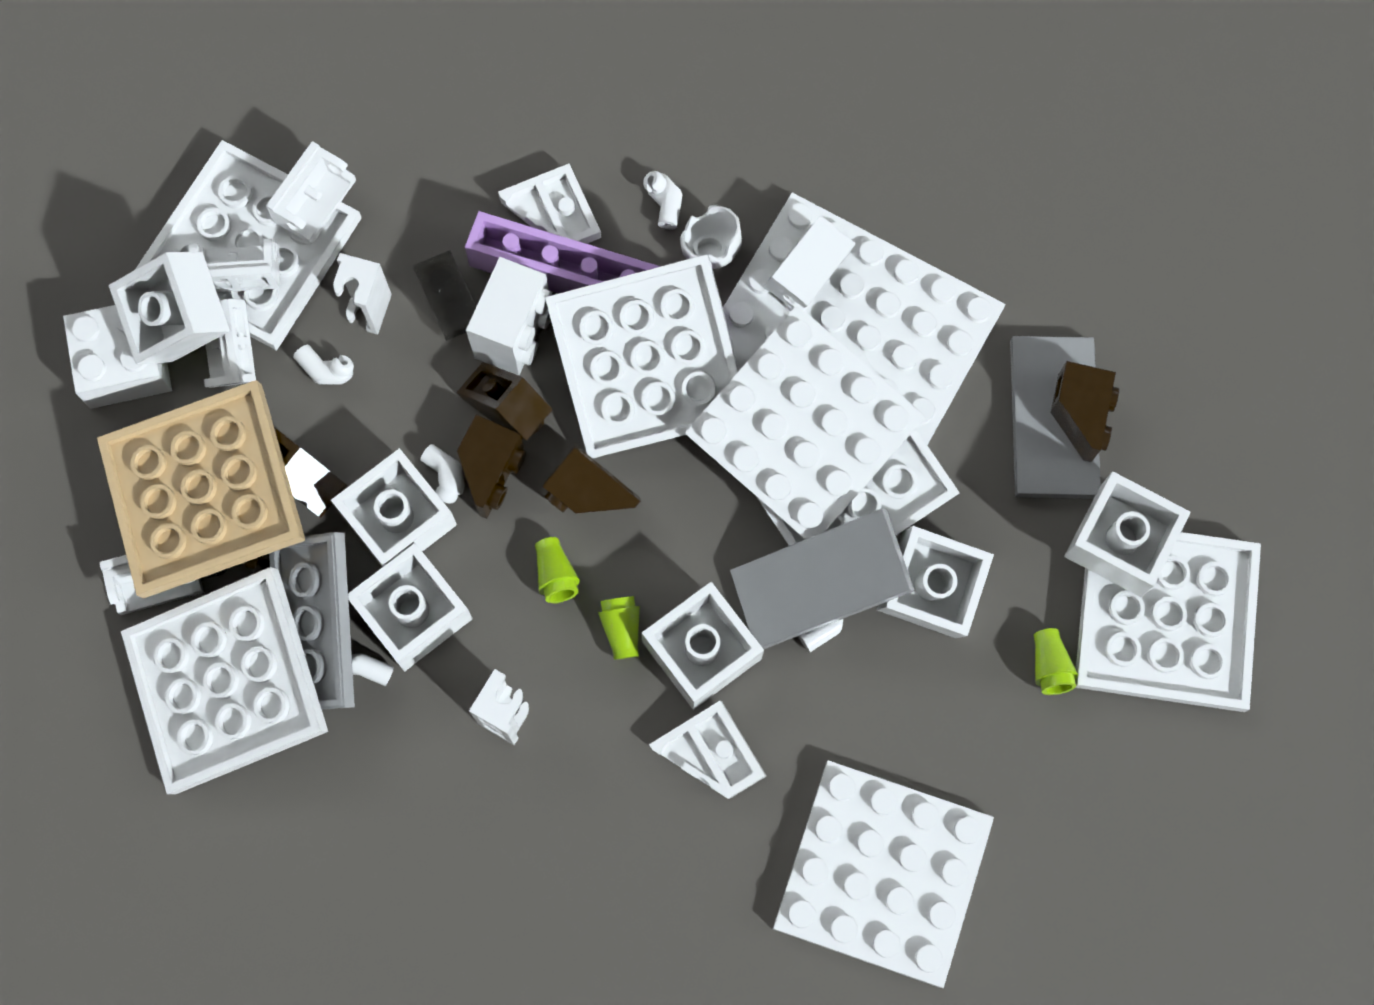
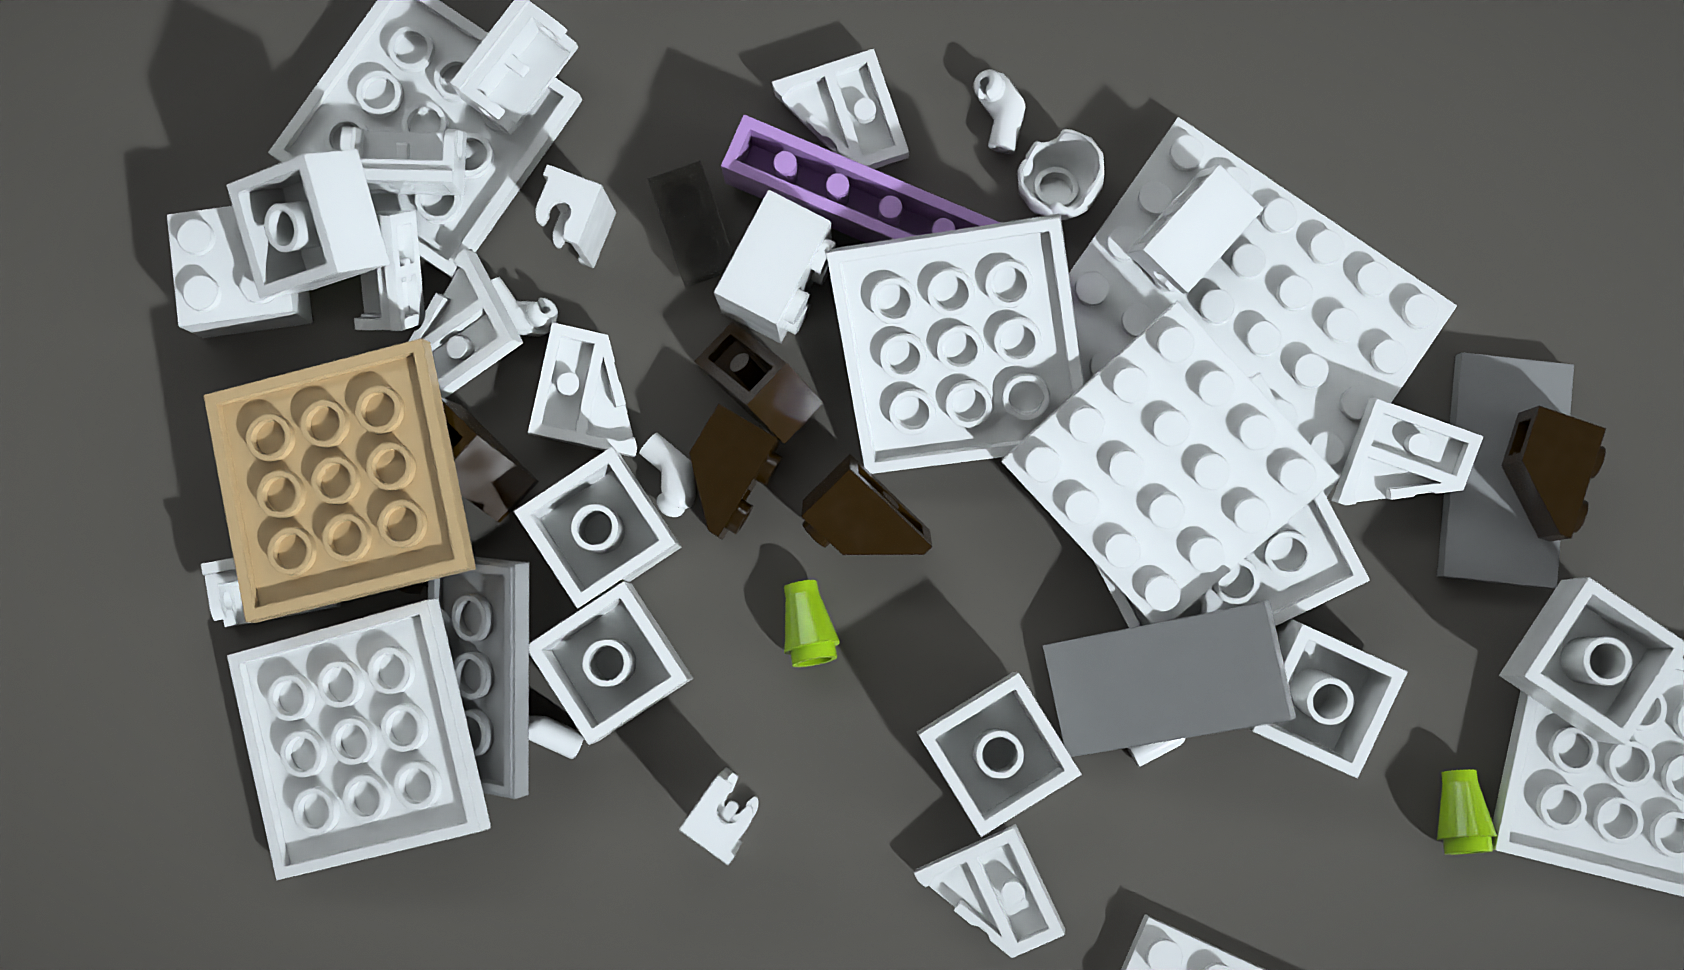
camera: 10 degrees right, 10 degrees up
(289, 378) = (467, 326): none -> white wing
(373, 419) = (581, 393): none -> white wing
(621, 626) = (890, 708): lime cone -> none
(978, 409) = (1404, 456): none -> white wing

